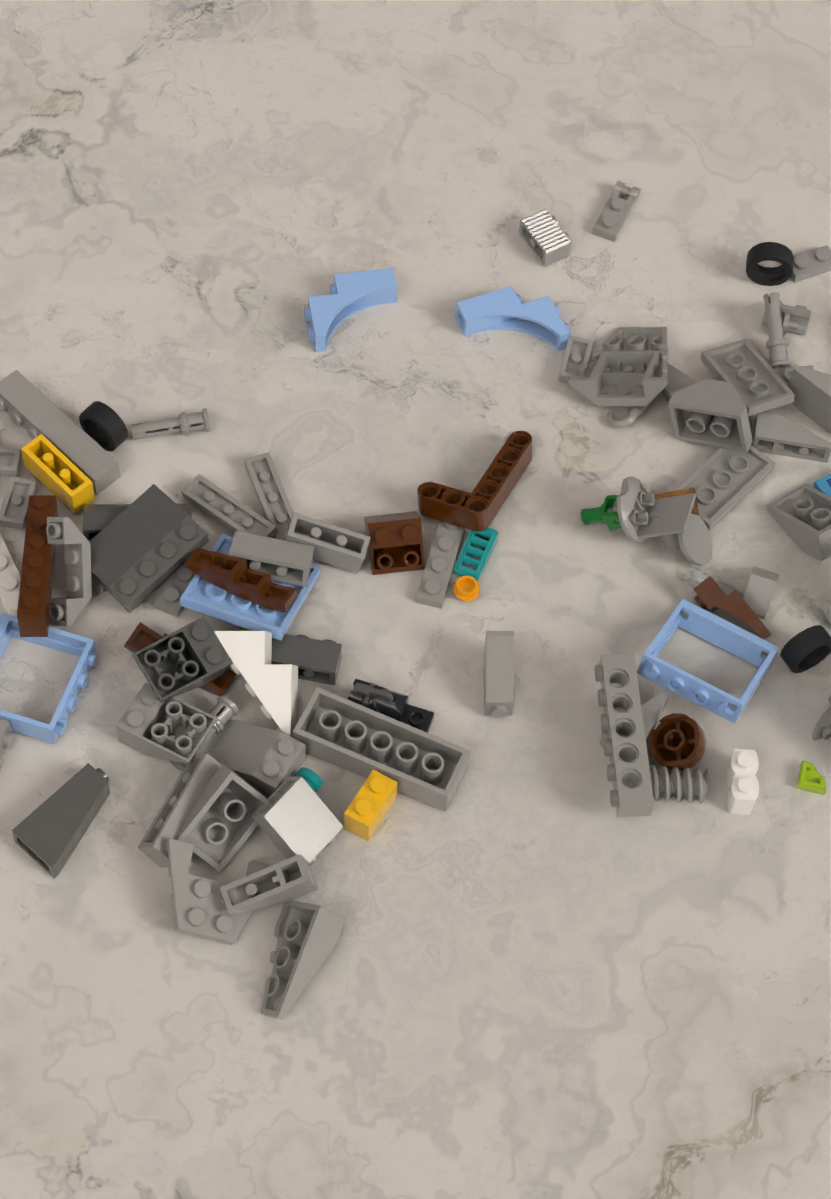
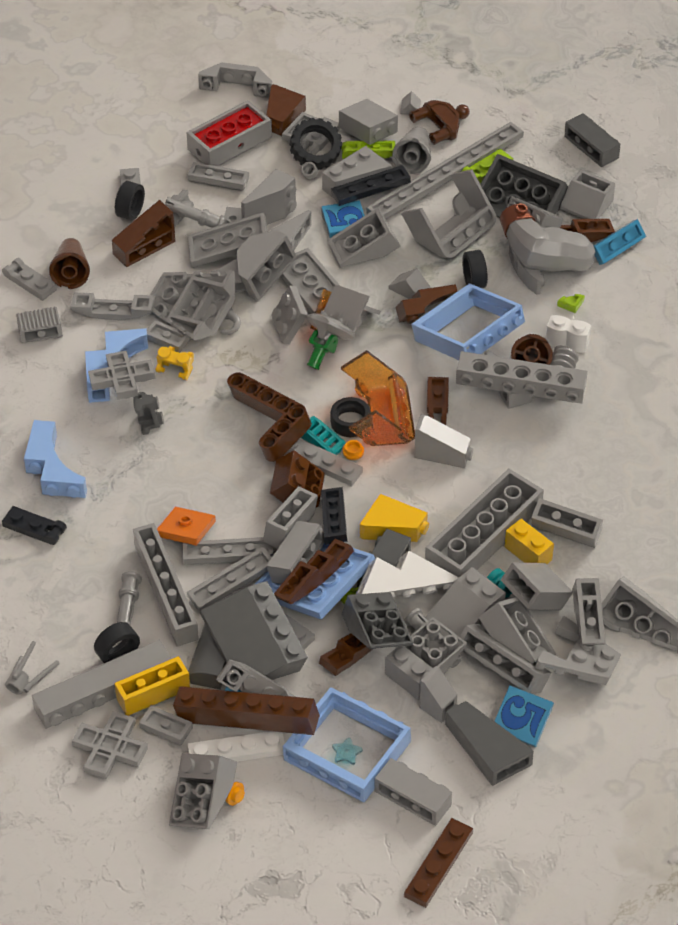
camera: 70 degrees left, 10 degrees down
(23, 689) = (348, 757): none -> clear light blue plate
(44, 356) = (19, 679): none -> light grey plant
(109, 849) = (524, 715): none -> tile
(112, 749) = (436, 694): none -> light grey slope
(202, 447) = (165, 584): none -> light grey brick
(258, 314) = (33, 525): none -> black plate
(293, 449) = (186, 525): none -> orange plate
(346, 586) = (334, 515): none -> black plate
(365, 648) = (395, 516): none -> yellow slope
(390, 704) = (445, 514): black plate -> none
(414, 839) = (567, 523): none -> light grey brick
(445, 375) = (147, 412): none -> dark grey piece
(479, 325) = (121, 375): none -> light grey plate
(515, 555) = (344, 405): none -> black tyre
(537, 378) = (168, 356): none -> yellow piece
(547, 612) = (388, 401): none -> clear orange windscreen
(574, 659) = (438, 397): none -> reddish brown hinge
(600, 294) = (112, 309): none -> light grey slope
(647, 464) = (289, 314): none -> light grey plate
(648, 236) = (69, 265): none -> reddish brown cone
(721, 295) = (145, 235): none -> reddish brown wedge

